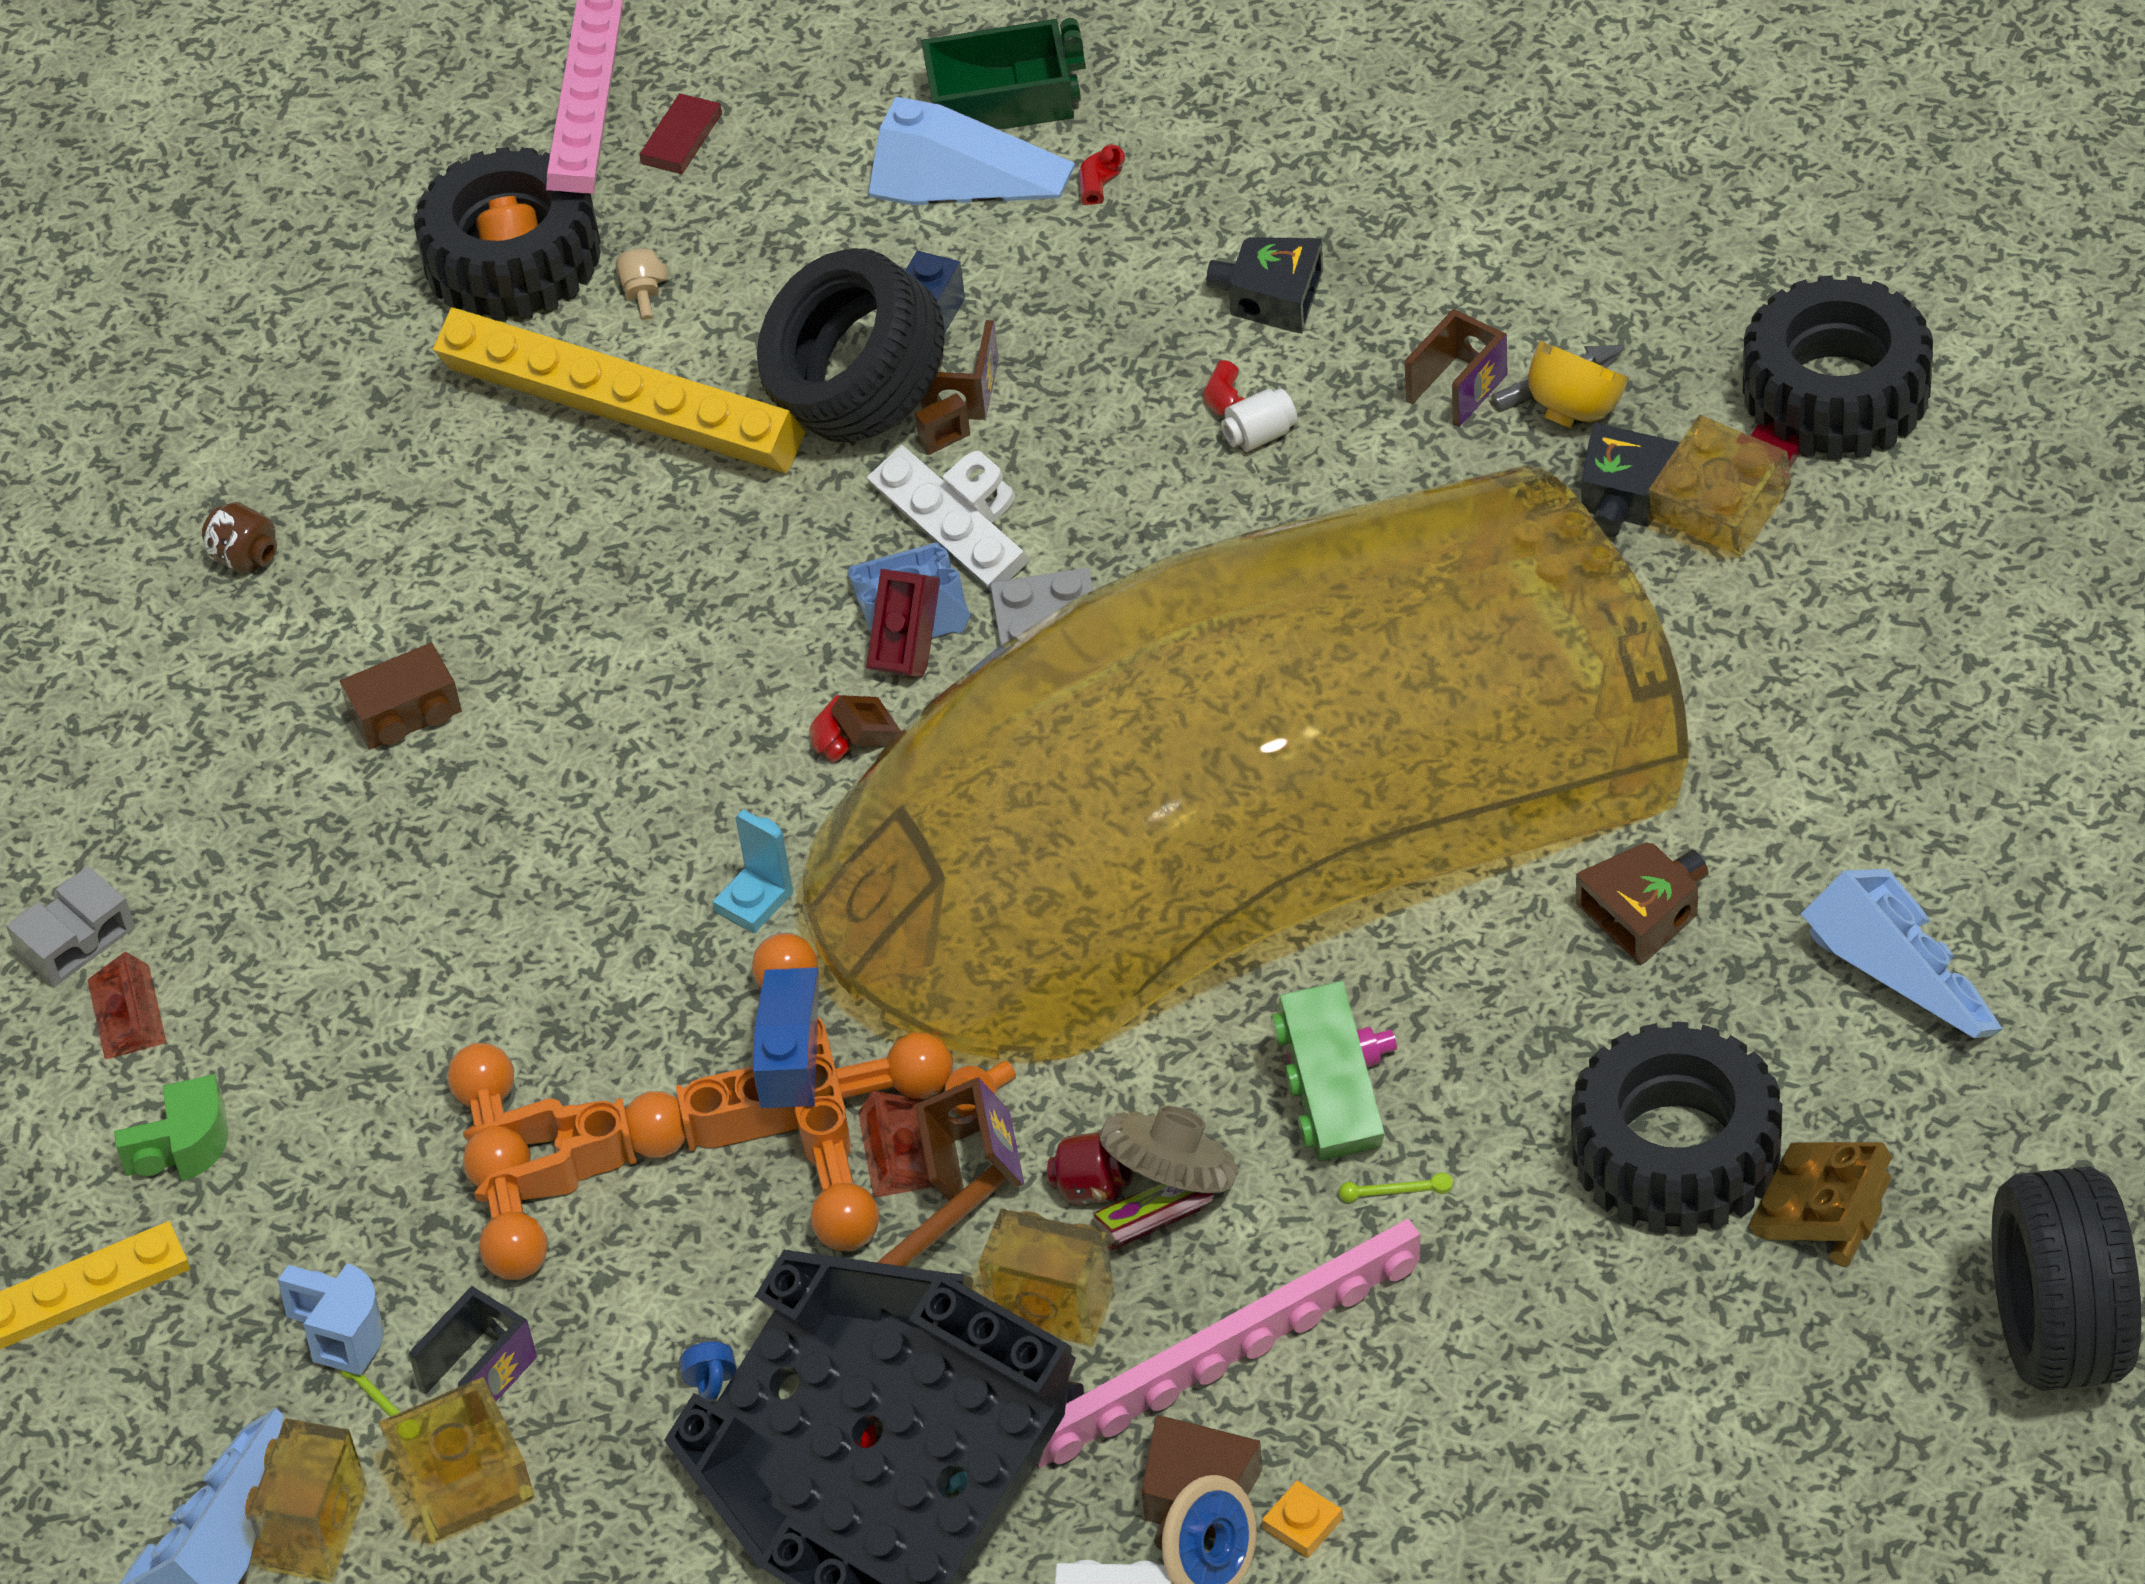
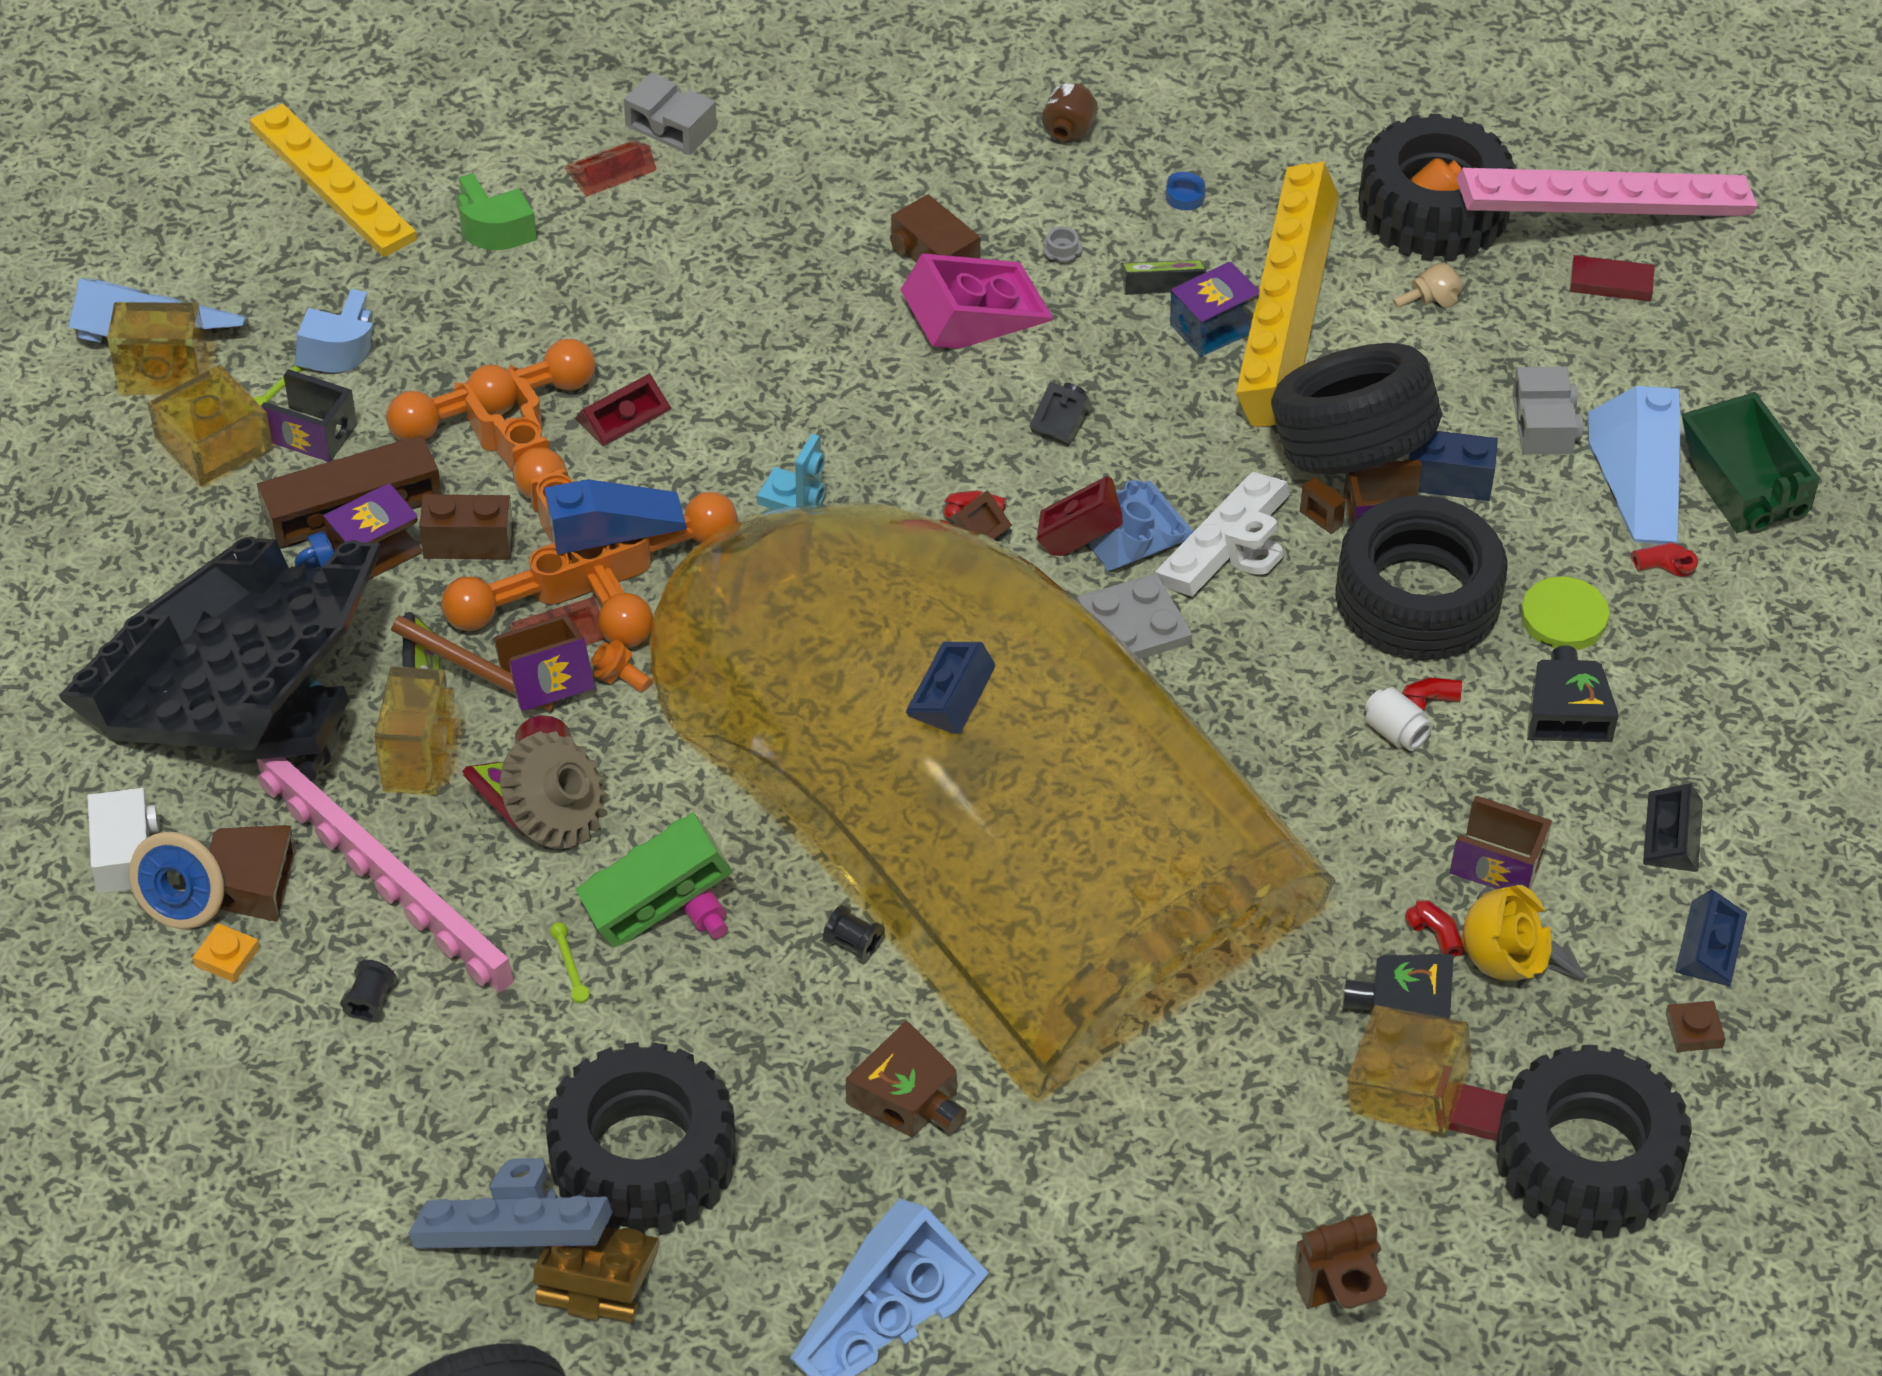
camera: 70 degrees right, 0 degrees up
(403, 462) = (1185, 191): none -> blue tile
(447, 576) = (1062, 244): none -> light grey plate
(515, 679) = (971, 299): none -> dark pink slope
(530, 504) = (1158, 275): none -> black slope
(559, 1042) = (624, 410): none -> dark red slope
(619, 1322) = (311, 491): none -> reddish brown brick
(620, 458) = (1213, 308): none -> piece
(702, 1296) = (376, 519): none -> piece
(718, 1207) = (466, 526): none -> reddish brown brick
(722, 624) = (1061, 412): none -> black bracket
(856, 219) = (1546, 410): none -> light grey brick
(1090, 404) = (1418, 623): none -> black tyre
(1146, 267) = (1565, 612): none -> lime tile
(1280, 658) = (952, 686): none -> dark blue slope
(1401, 1374) = (368, 990): none -> black bush
(1428, 917) = (853, 933): none -> black bush
(1451, 244) = (1673, 828): none -> black slope
(1532, 440) = (1441, 923): none -> red arm
(1594, 248) = (1711, 939): none -> dark blue slope
(1698, 279) = (1695, 1026): none -> reddish brown plate
(1757, 1252) = (515, 1216): none -> sand blue plate
(1949, 565) = (1340, 1263): none -> reddish brown piece

